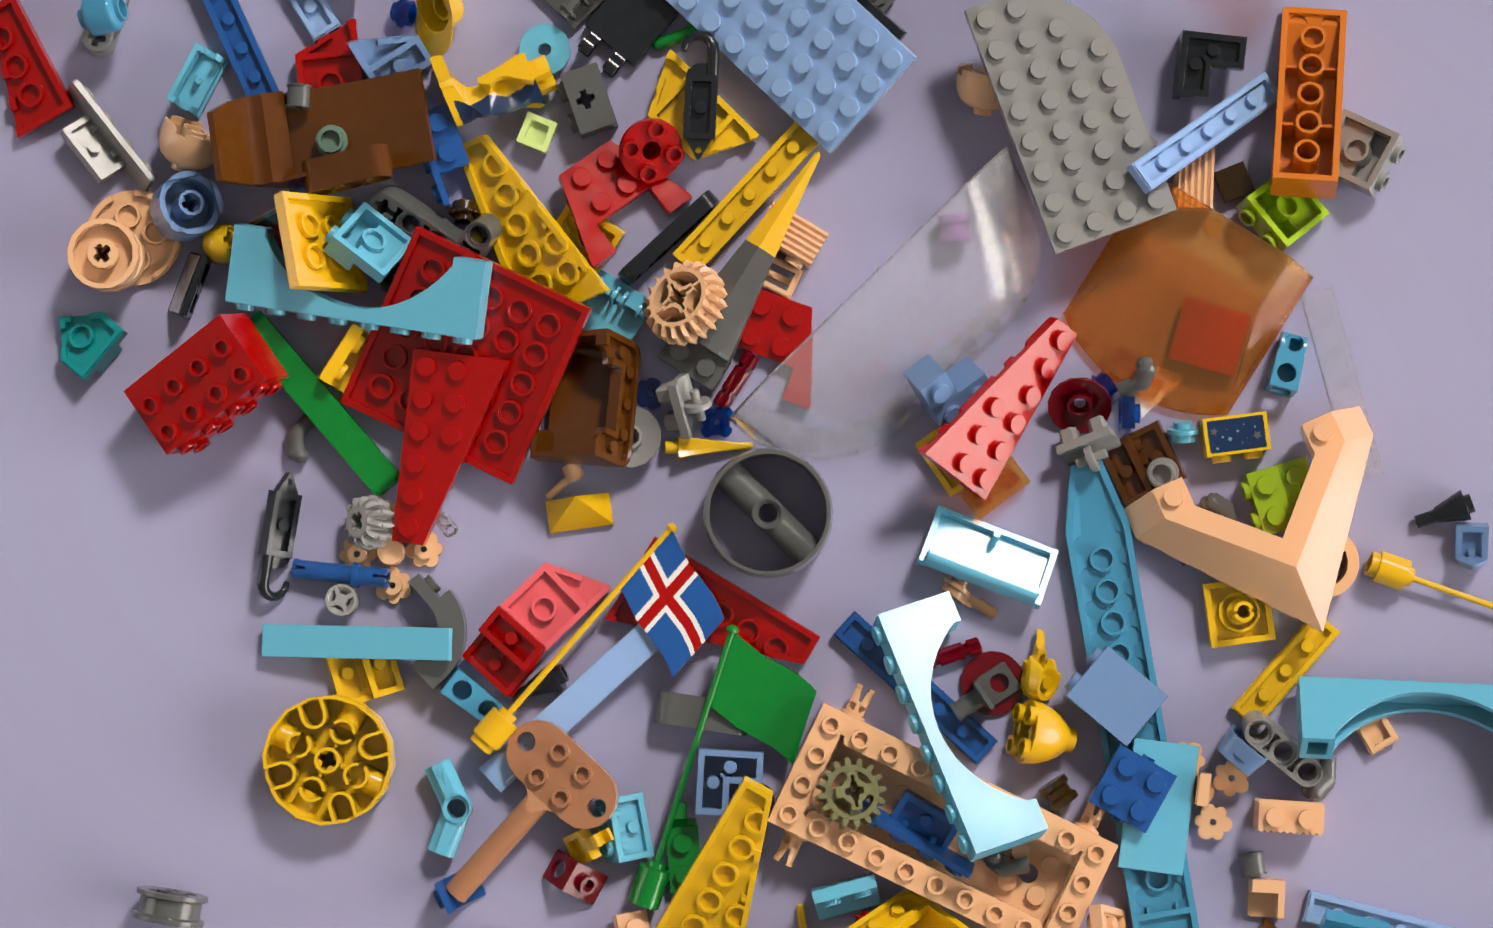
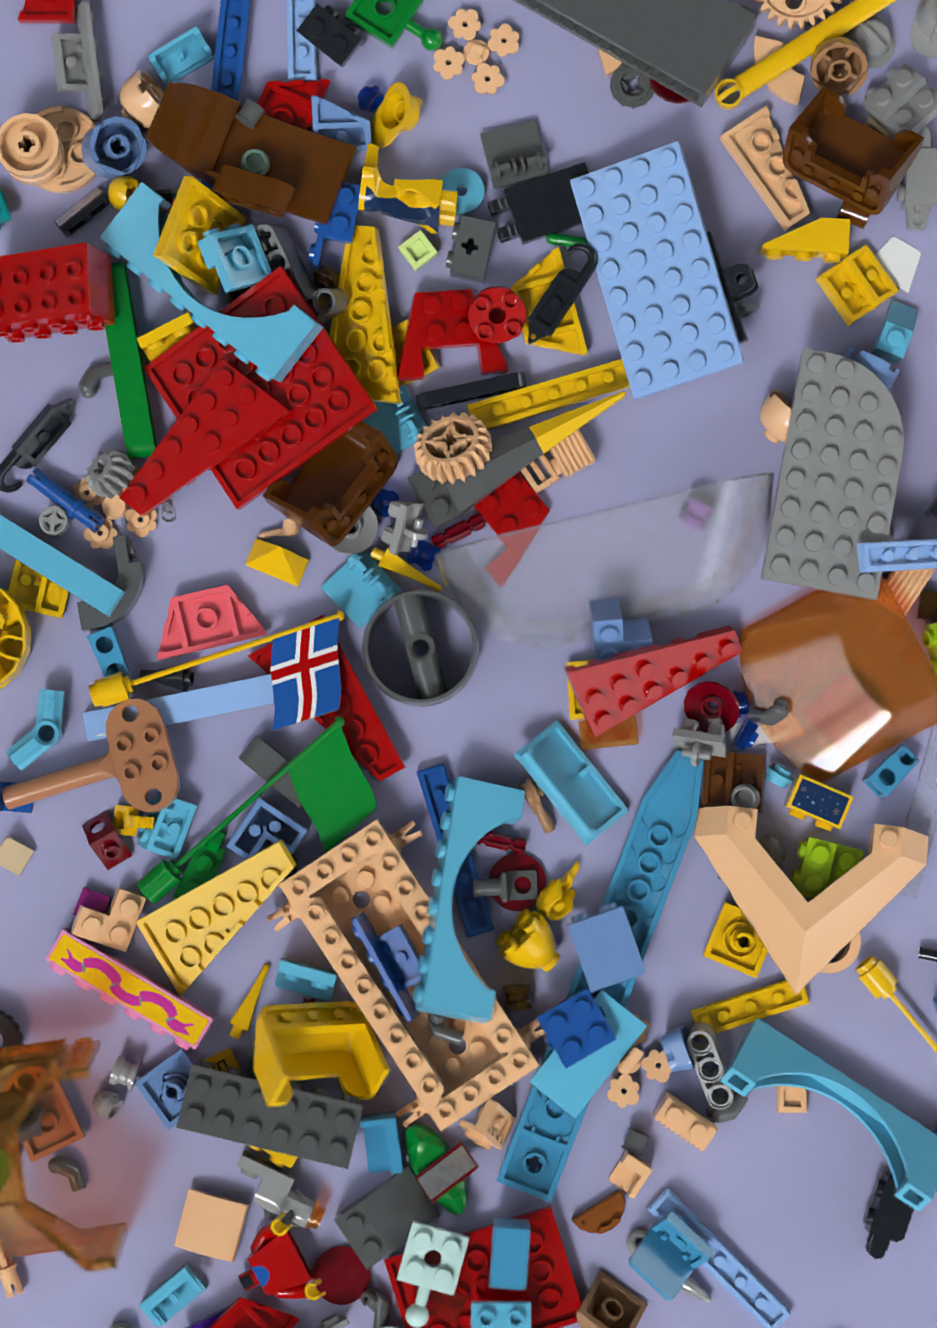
camera: 25 degrees right, 0 degrees up
(504, 652) = (154, 635): red slope -> none
(675, 489) = (360, 587): none -> medium azure hinge
(851, 806) = (349, 912): olive gear -> none

